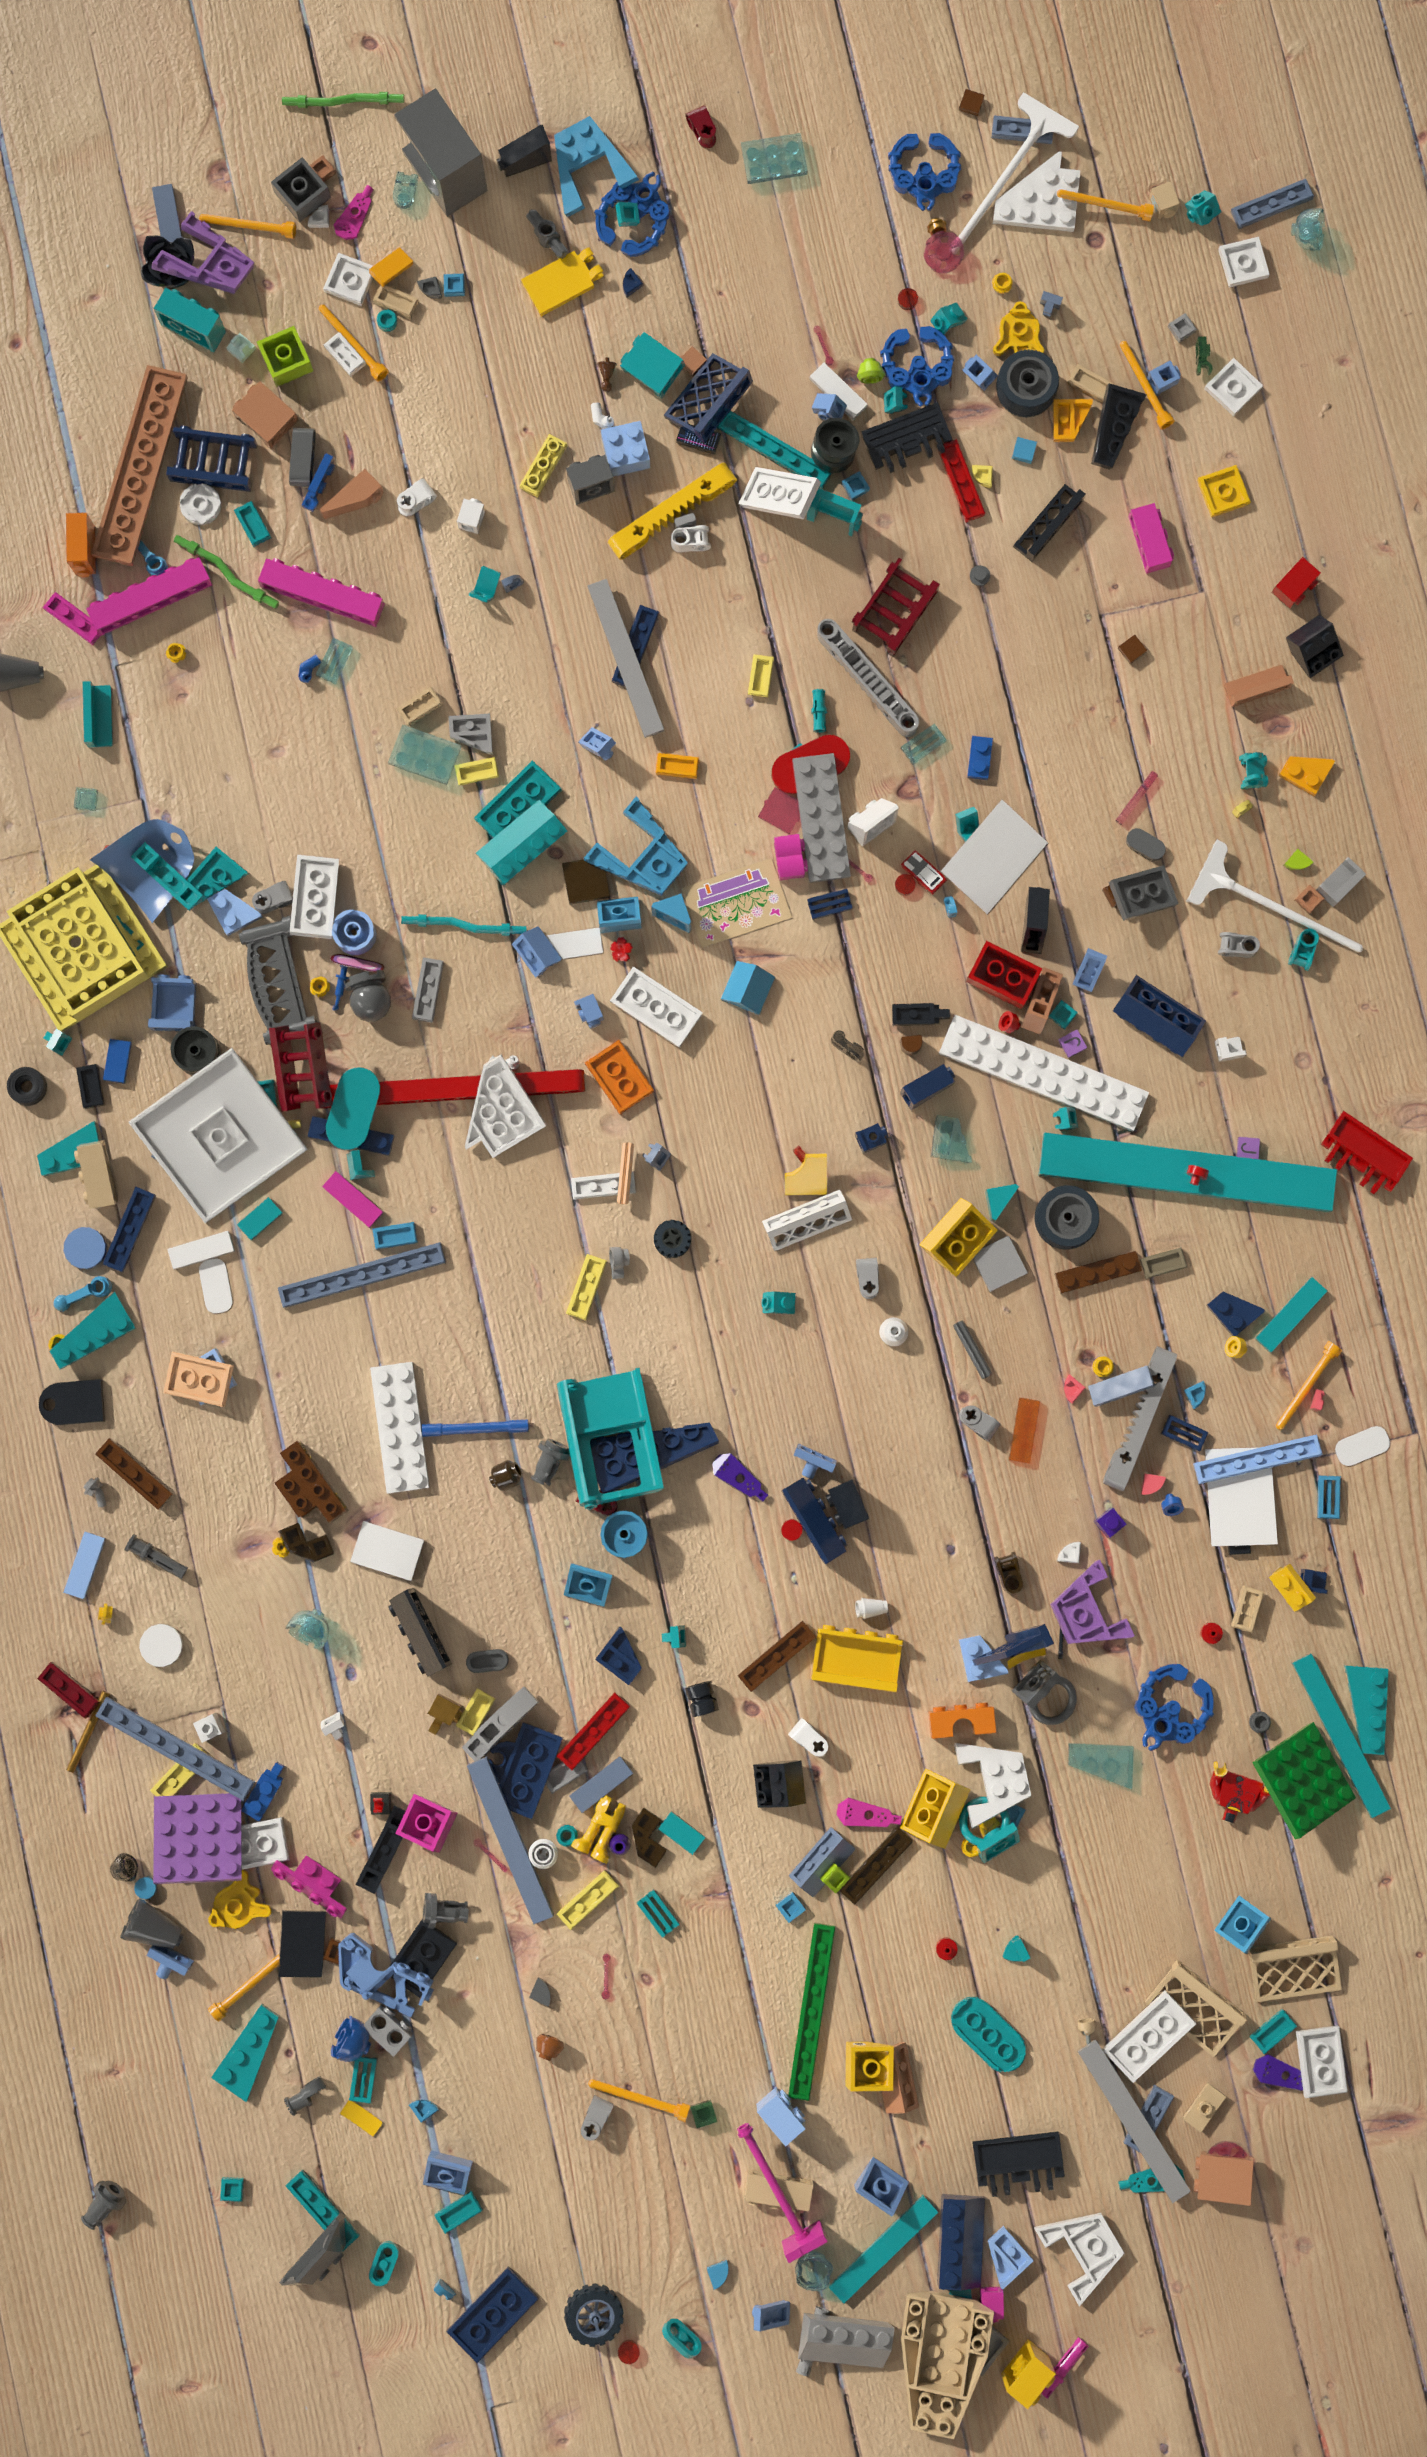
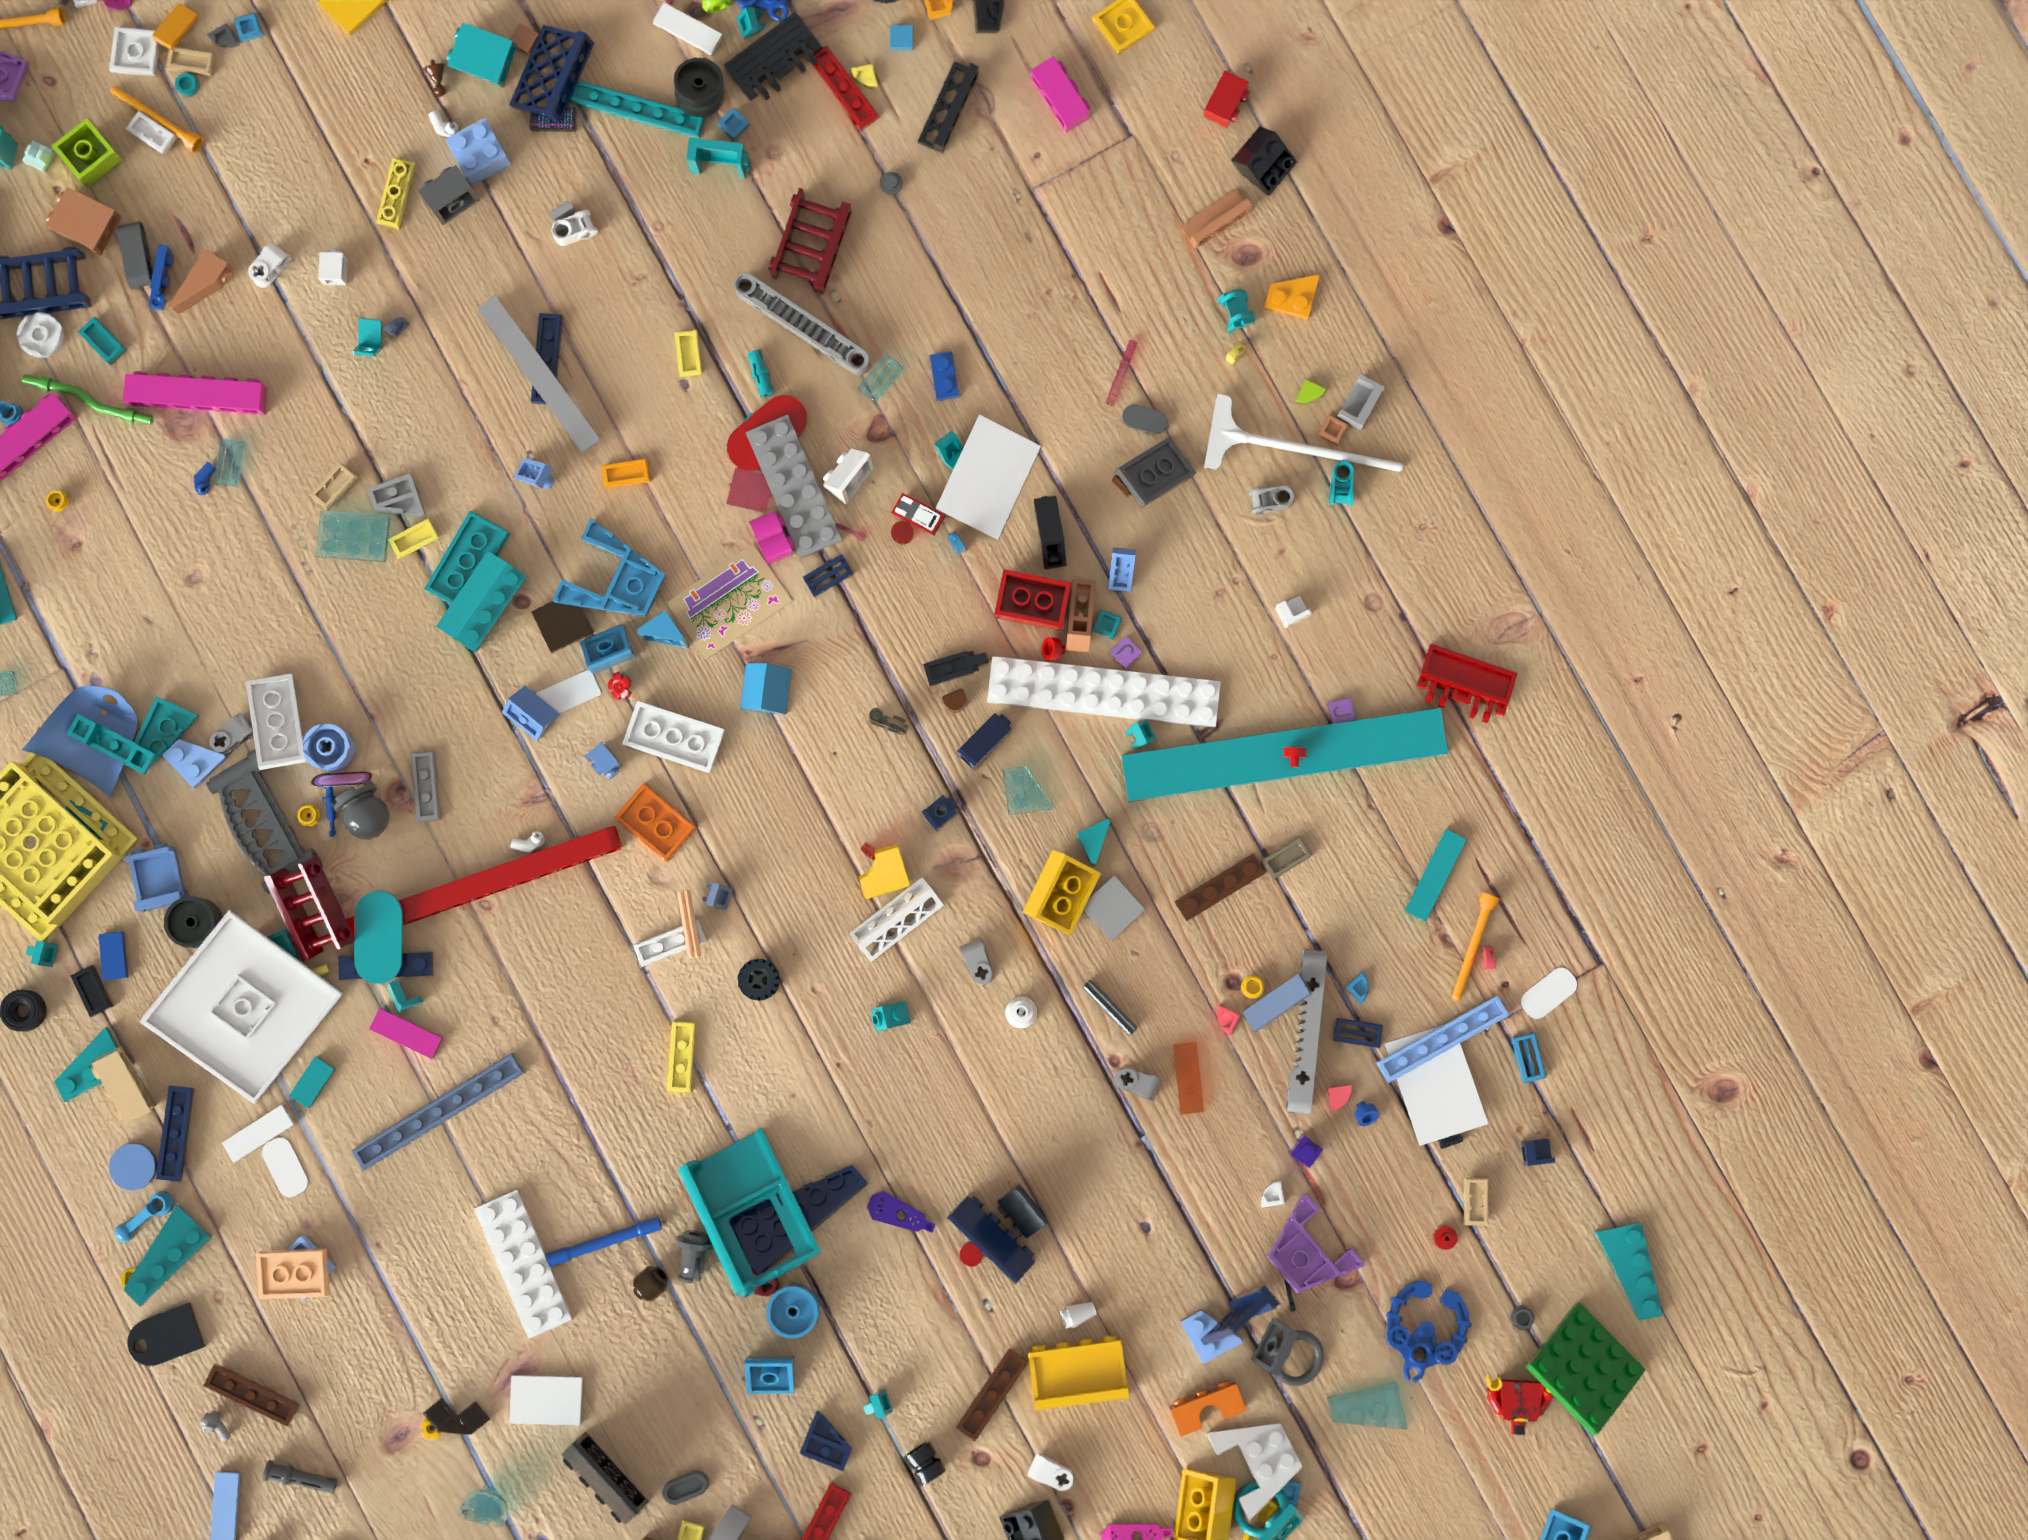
camera: 15 degrees left, 0 degrees up
(307, 1486) = (441, 1354): reddish brown piece -> none
(395, 1235) = (462, 1059): dark azure tile -> none
(423, 920) = (400, 713): teal bar -> none
(501, 1110) = (538, 894): white wing -> none
(618, 1259) = (707, 1018): light grey piece -> none
(626, 542) = (586, 158): yellow gear -> none
(779, 493) = (653, 154): white plate -> none
(814, 1460) = (974, 1173): medium blue tile -> none
(828, 406) = (681, 48): medium blue brick -> none
(1009, 1571) = (1213, 1233): dark brown piece -> none
(1025, 1656) = (1242, 1331): yellow sticker -> none
(1051, 1221) = (1165, 856): wheel -> none
(1132, 649) = (1073, 216): reddish brown tile -> none
(1159, 1016) = (1209, 597): dark blue slope -> none
(1234, 1312) = (1374, 889): dark blue wing -> none
(1235, 1347) = (1386, 926): yellow tile -> none
(1292, 1587) = (1516, 1166): yellow bracket -> none
(1341, 1735) = (1612, 1308): teal tile -> none

